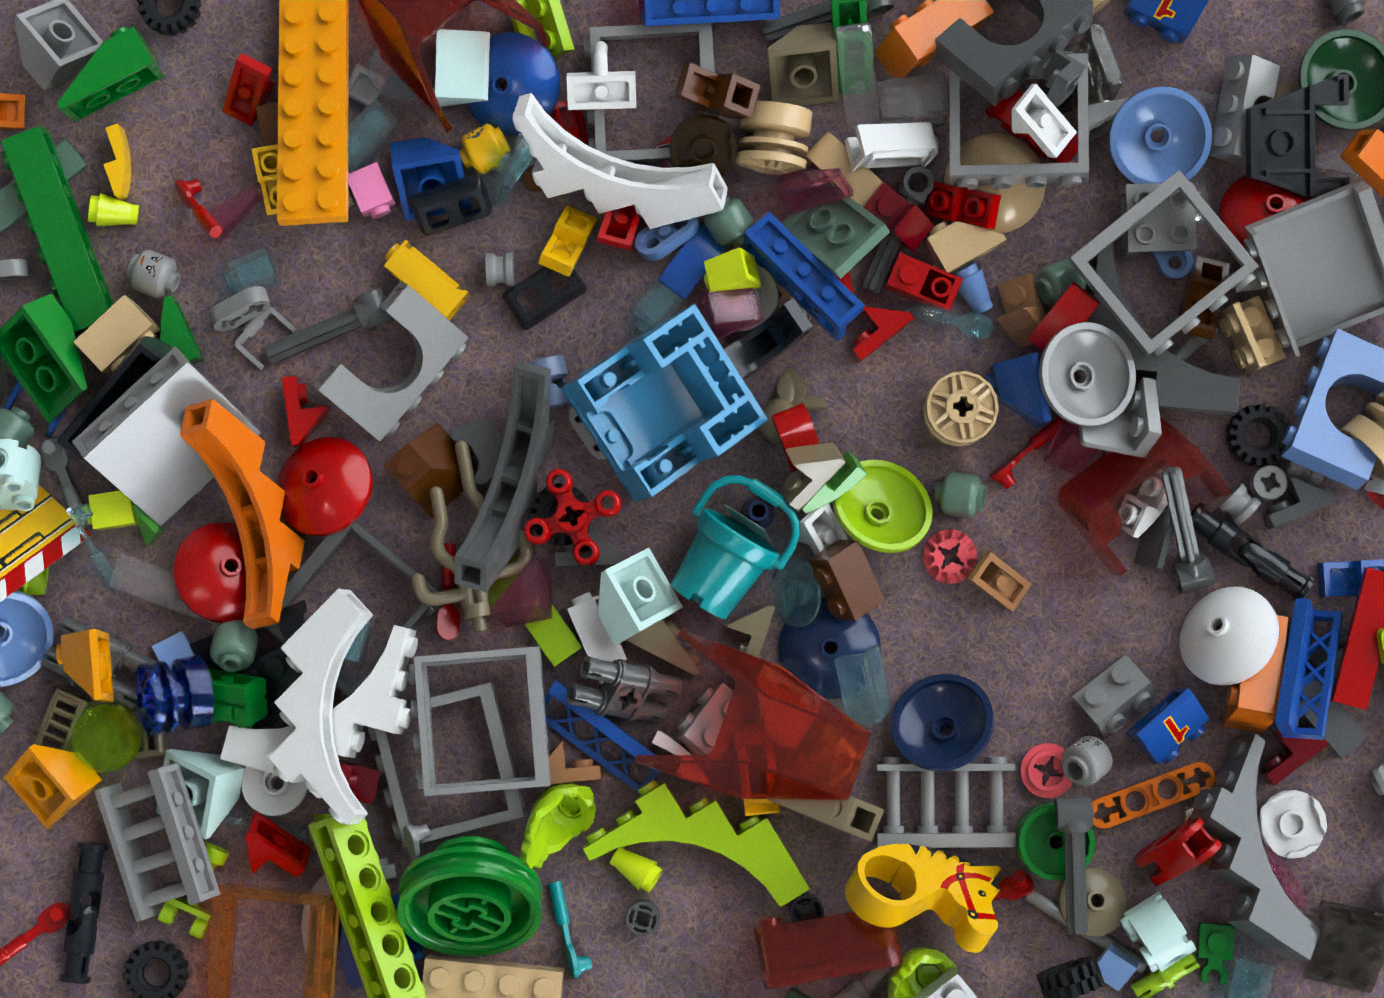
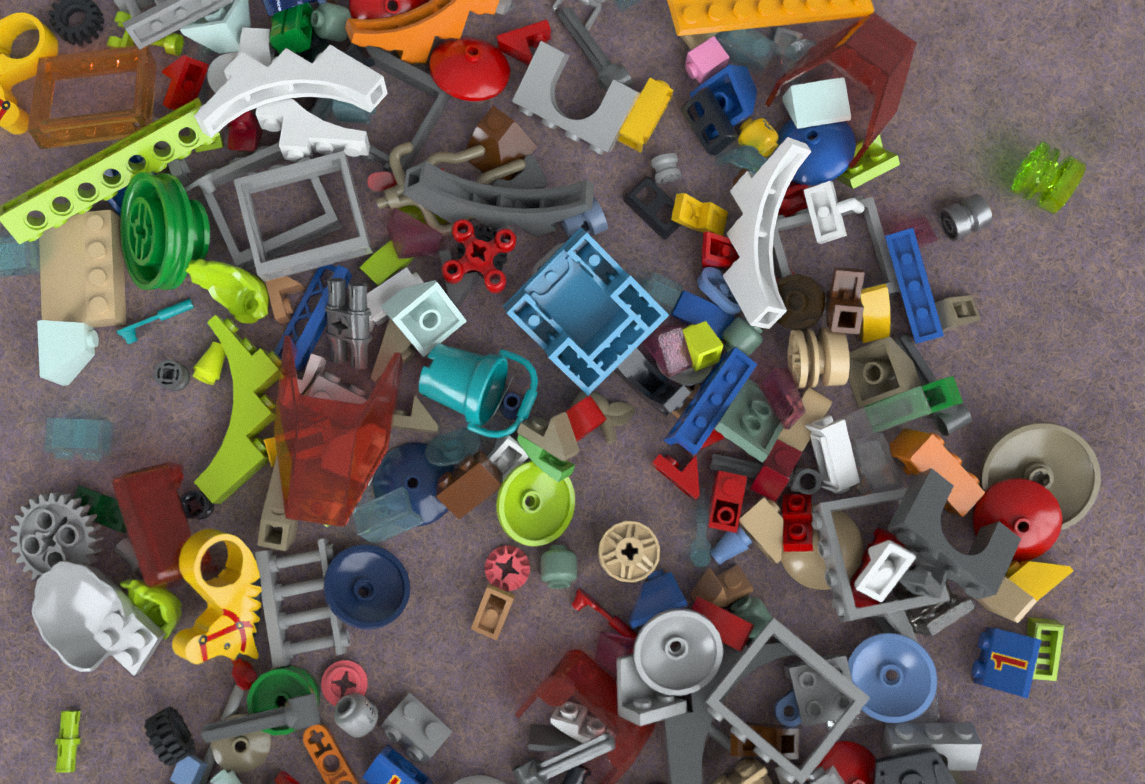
camera: 75 degrees right, 5 degrees down
(733, 56) = (876, 313): none -> yellow slope

